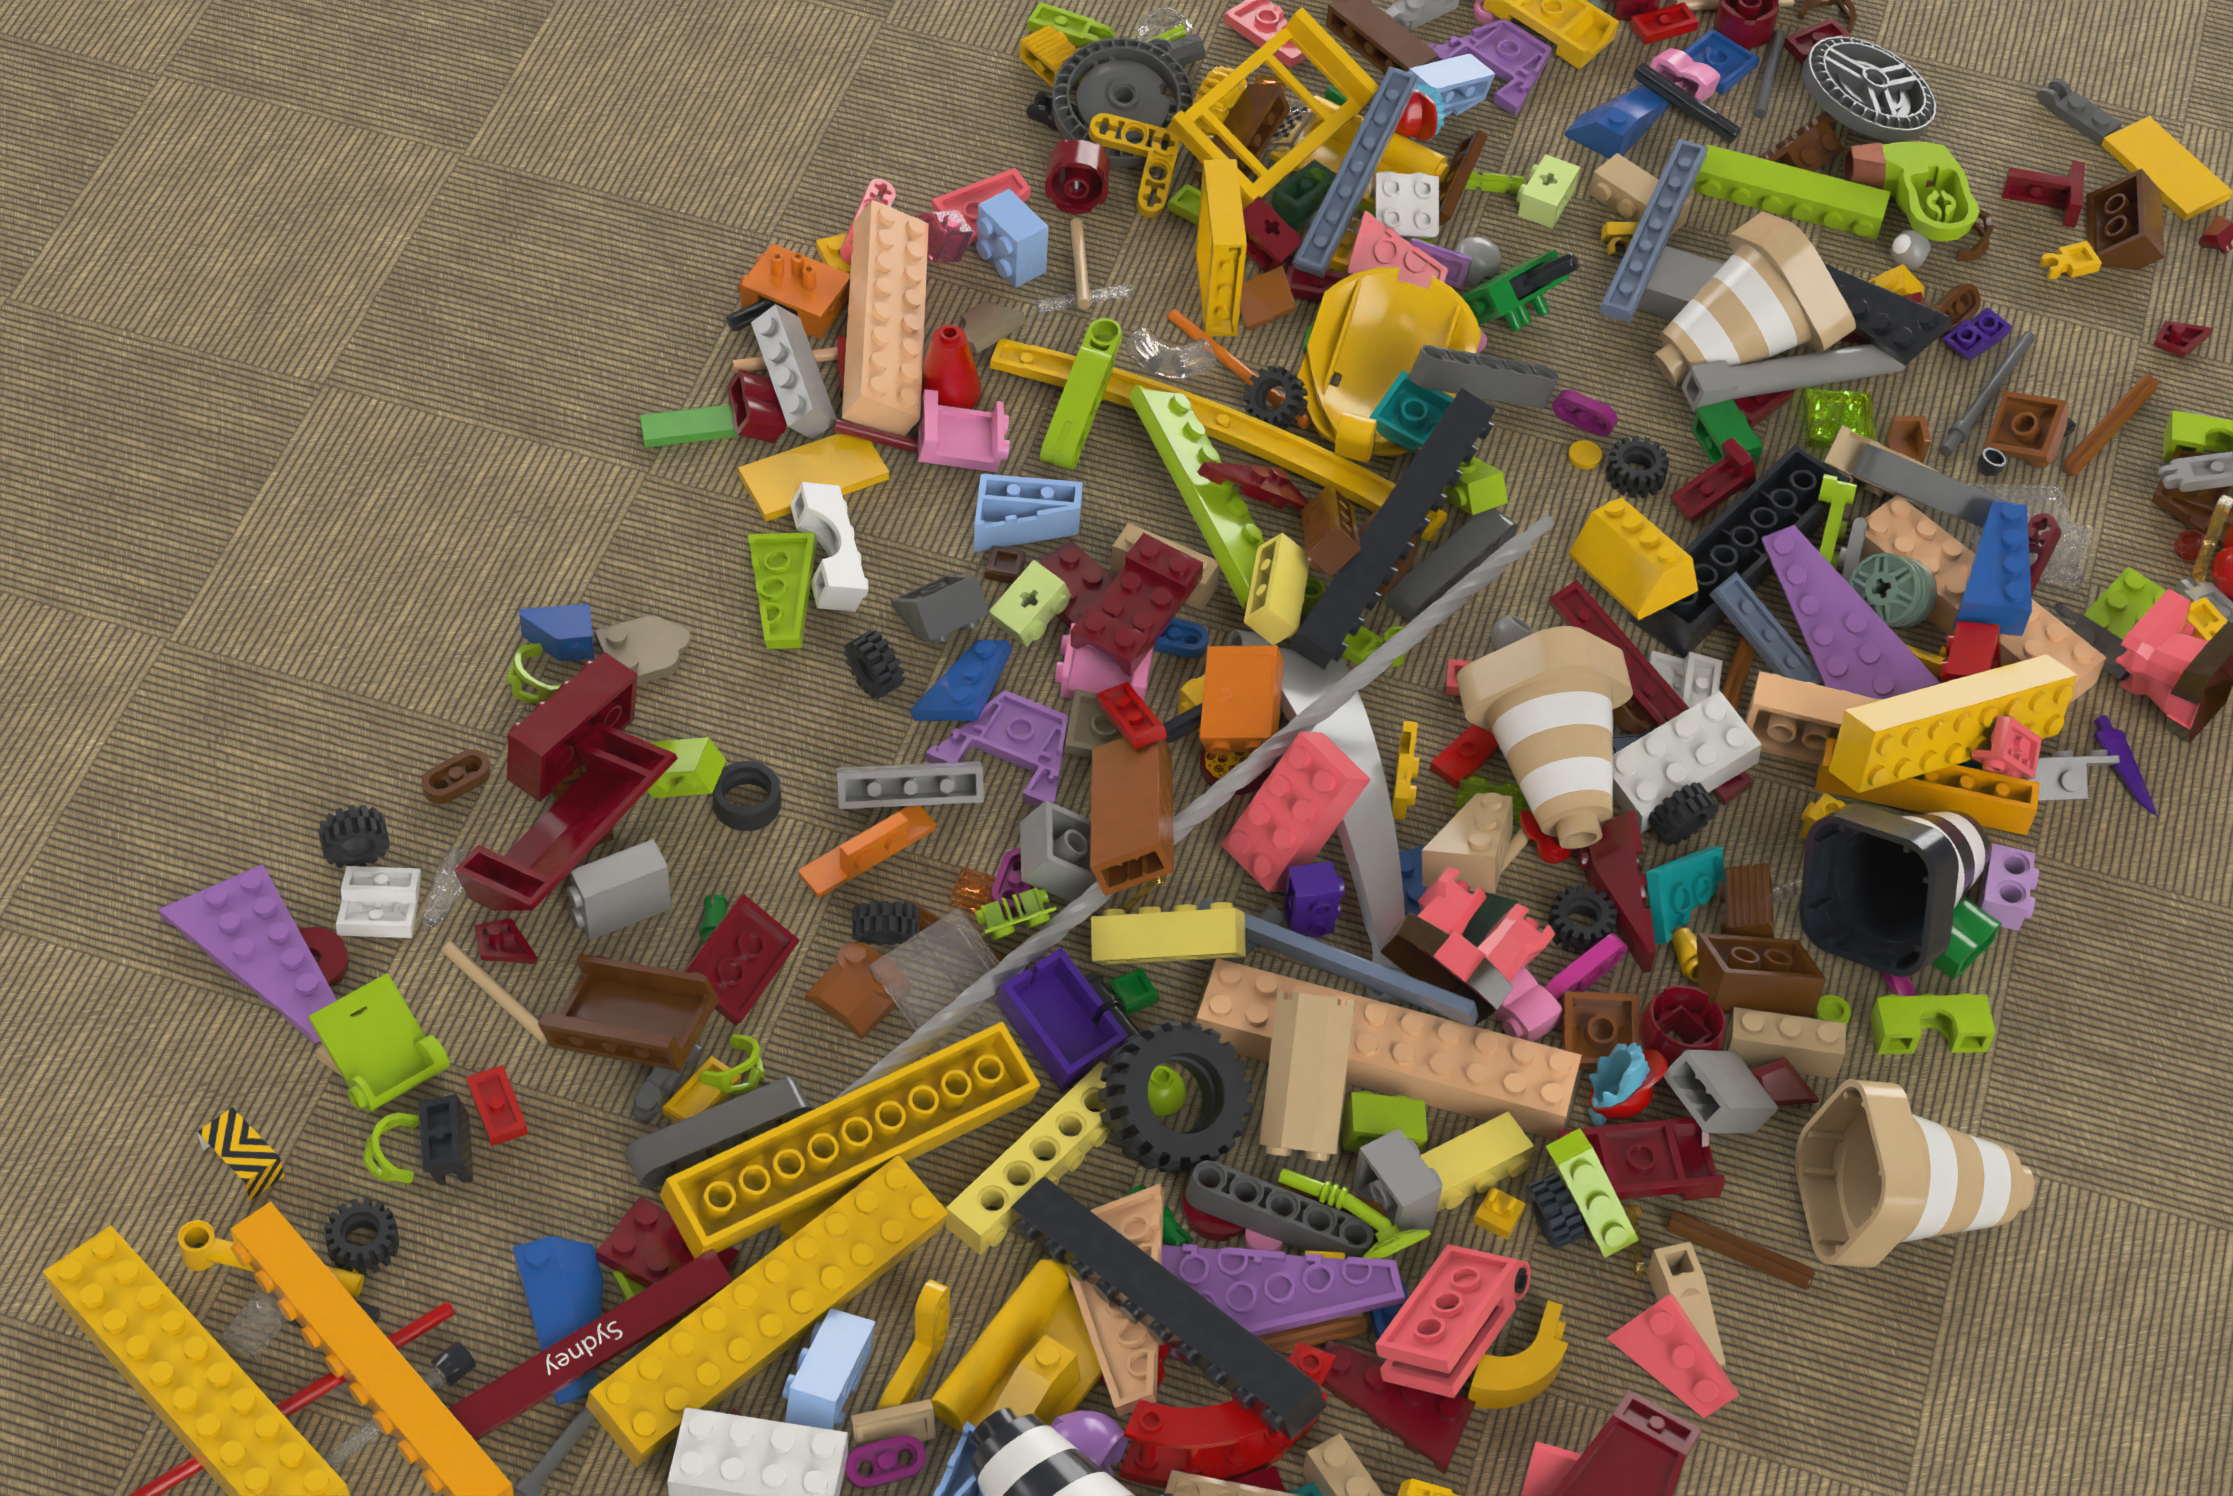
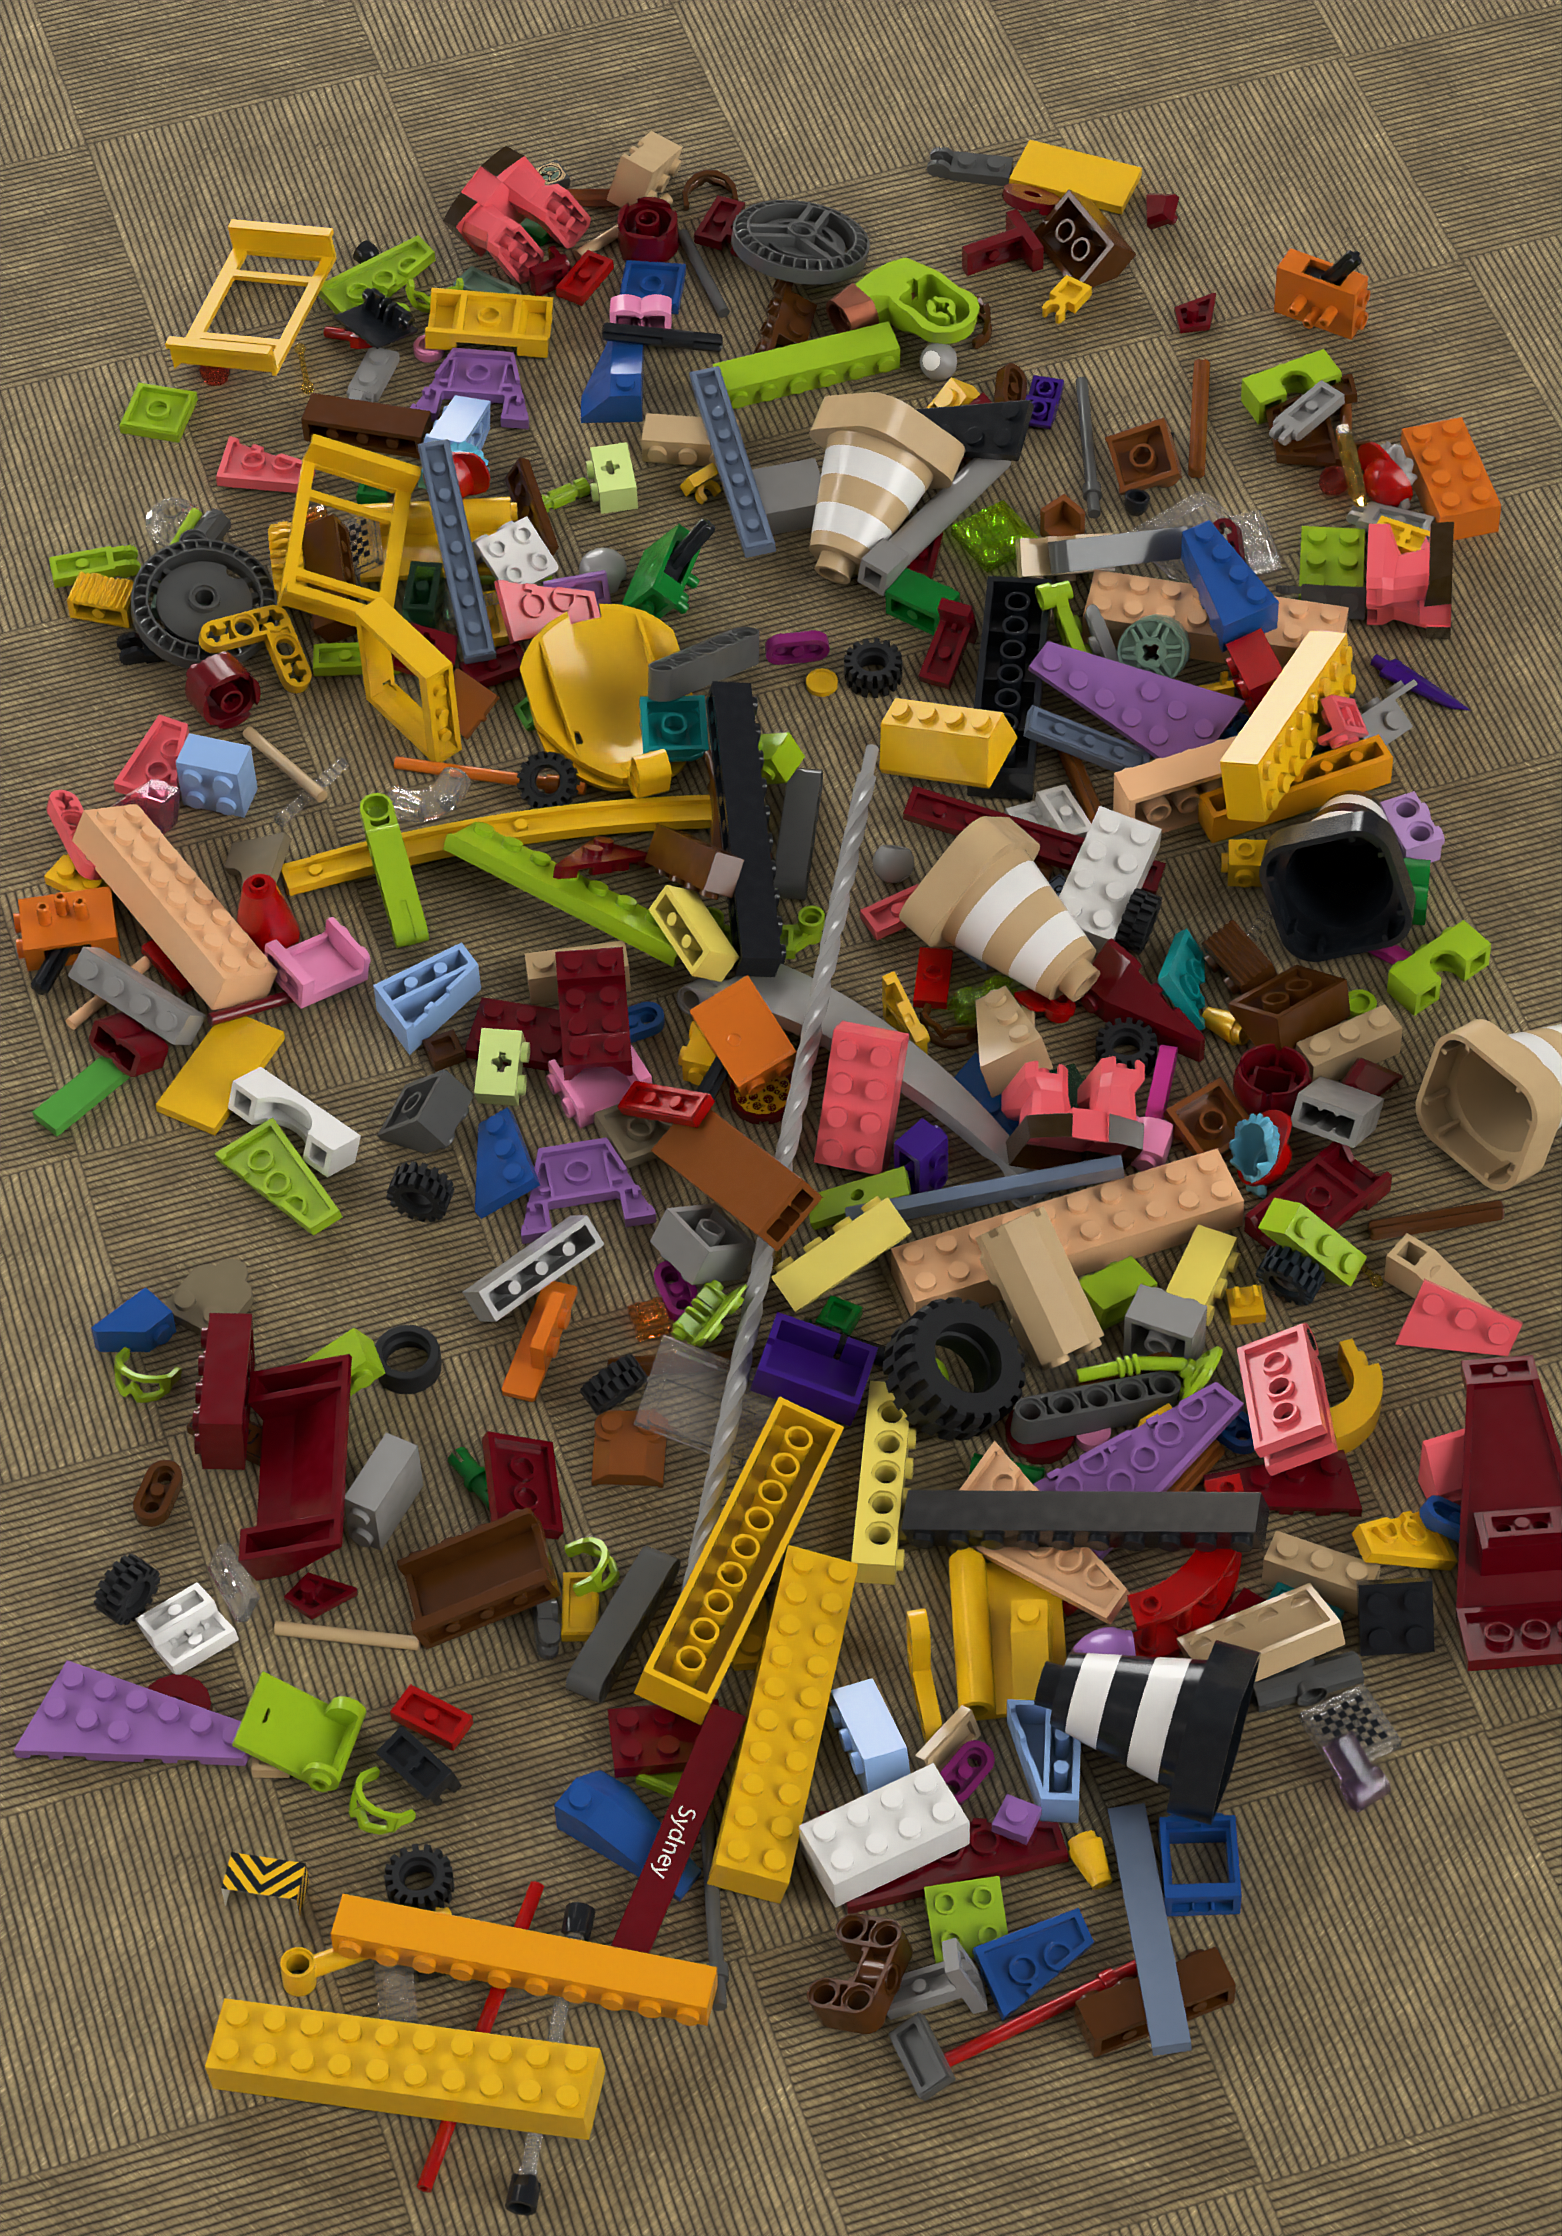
camera: 30 degrees left, 0 degrees up
(1250, 899) = (835, 1200): none -> lime tile
(1426, 804) = (971, 1031): none -> reddish brown helmet
(2103, 158) = (1028, 197): none -> dark red tile

